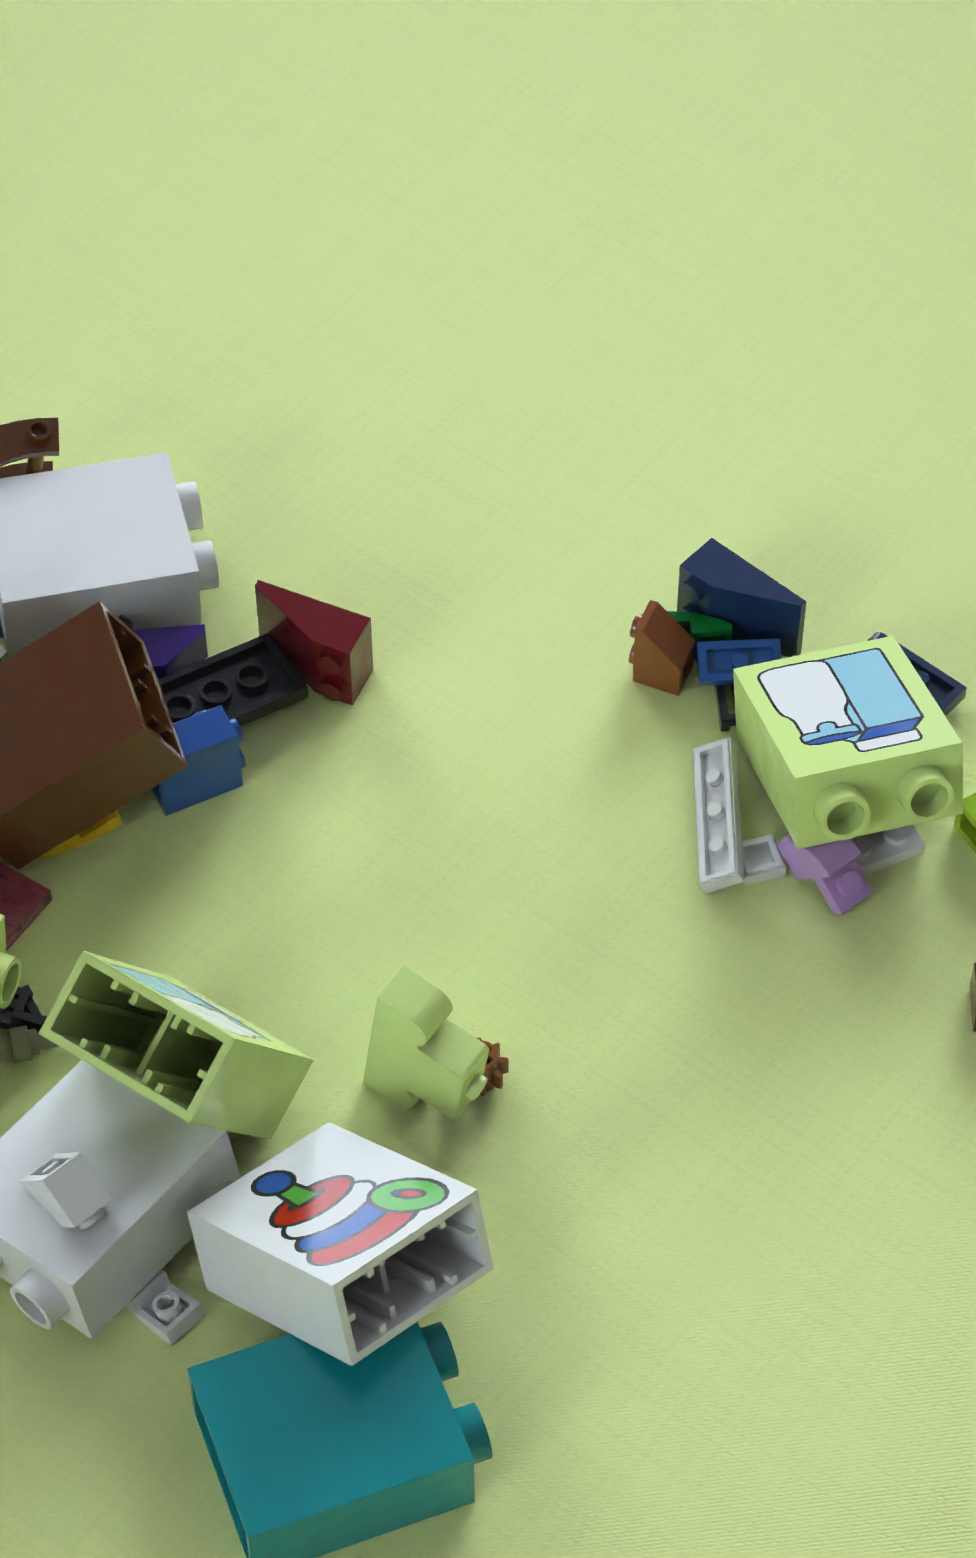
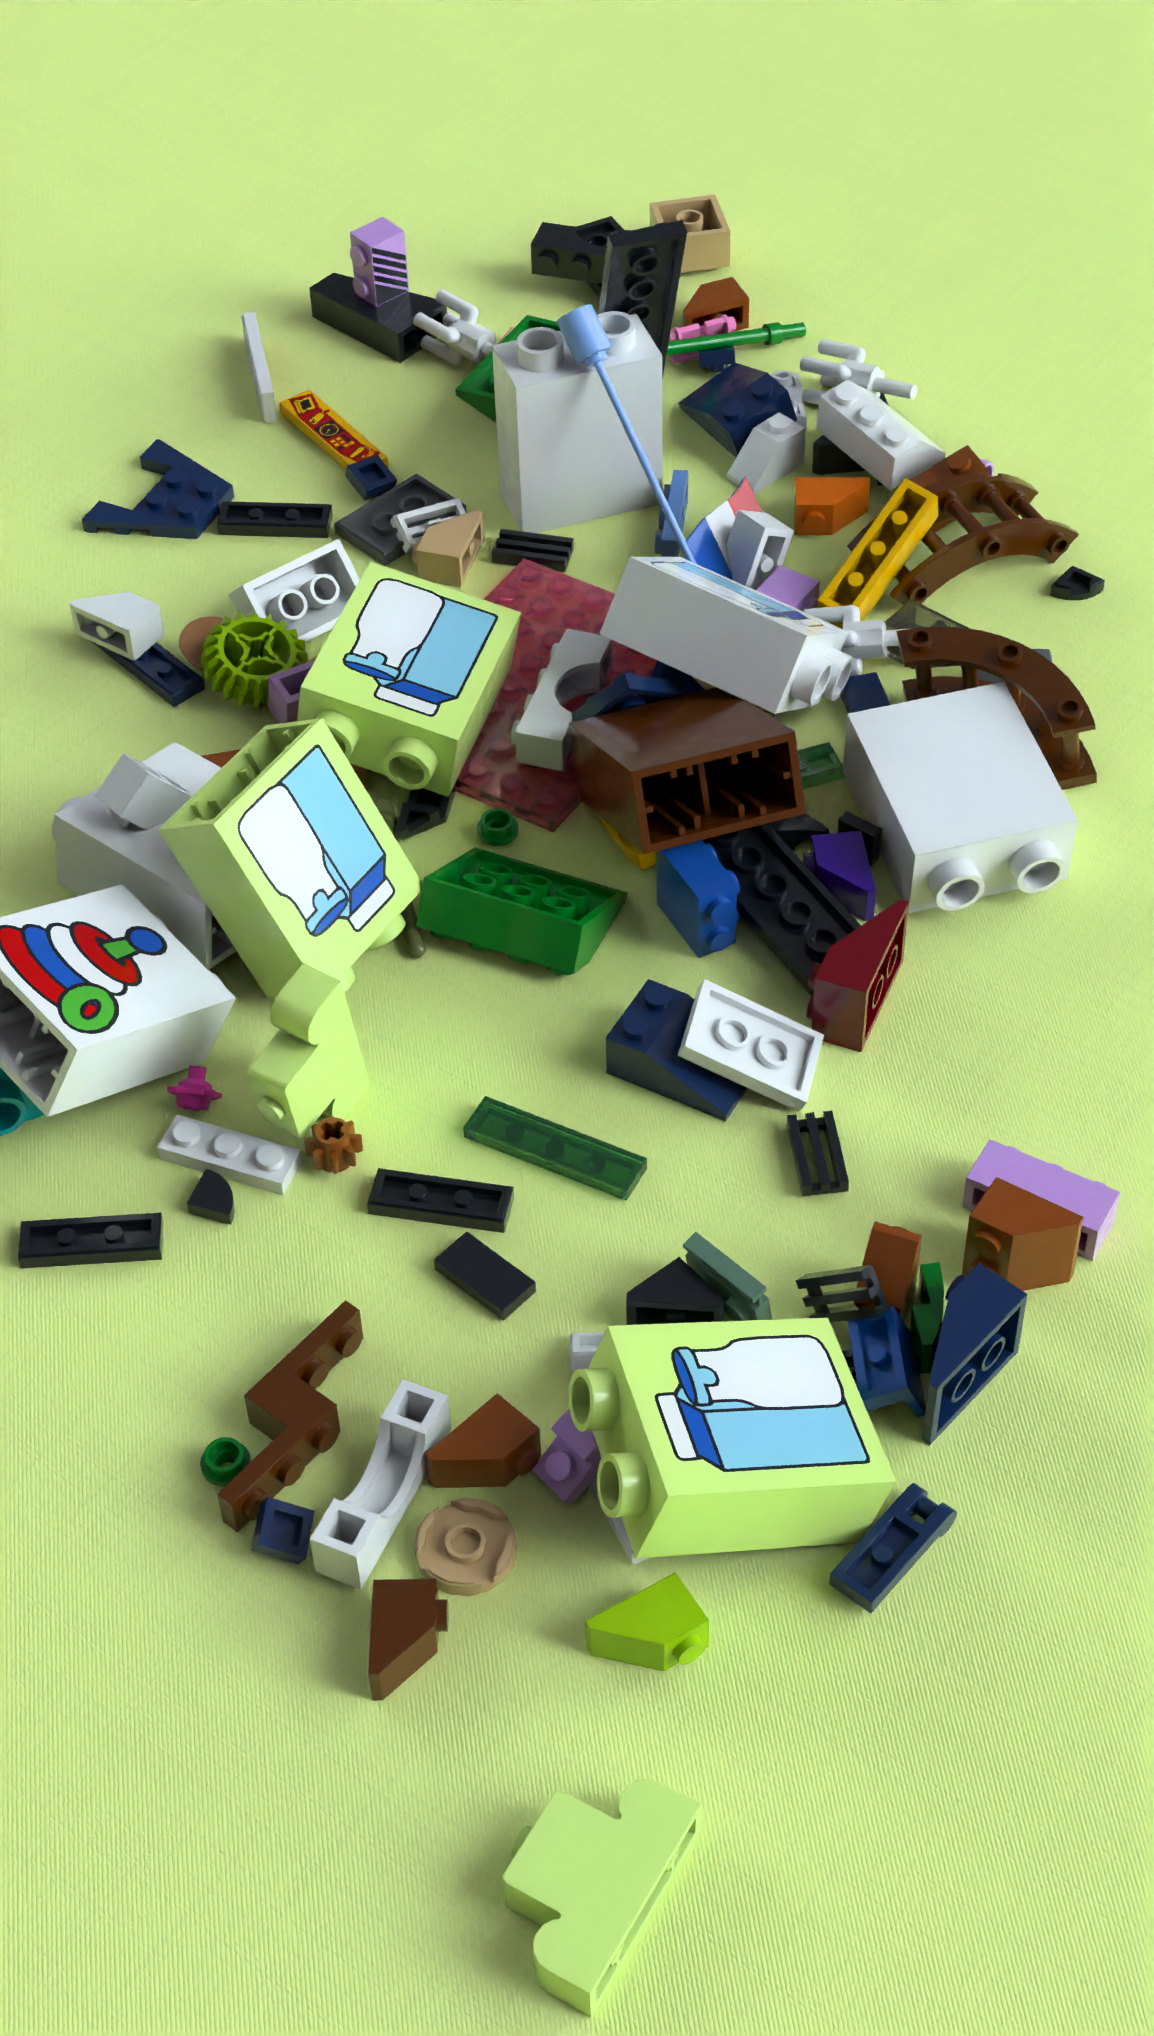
camera: 90 degrees right, 5 degrees down
(48, 931) = (497, 827): none -> green plate
(182, 906) = (519, 910): none -> green slope
(375, 795) = (646, 1049): none -> dark blue slope
(388, 730) = (751, 1045): none -> white plate
(481, 898) = (555, 1148): none -> clear green tile
(485, 1146) = (230, 1154): none -> white plate
(498, 697) = (812, 1126): none -> black tile
(532, 1172) = (212, 1198): none -> black tile
(540, 987) = (441, 1200): none -> black tile
(563, 550) = (1050, 1181): none -> lavender brick
(581, 1278) = (91, 1240): none -> black tile
(621, 562) = (1022, 1237): none -> dark orange slope
(631, 951) = (485, 1275): none -> black tile
(659, 760) = (741, 1291): none -> sand green plate
(665, 803) = (674, 1296): none -> black slope
(682, 676) = (847, 1312): none -> black tile
(795, 1087) = (292, 1415): none -> reddish brown bracket
(824, 940) = (485, 1449): none -> dark orange slope
(845, 1133) = (220, 1452): none -> green plate
(916, 964) = (466, 1547): none -> tan tile
(916, 1090) = (282, 1530): none -> dark blue plate
(918, 1029) = (361, 1525): none -> white arch

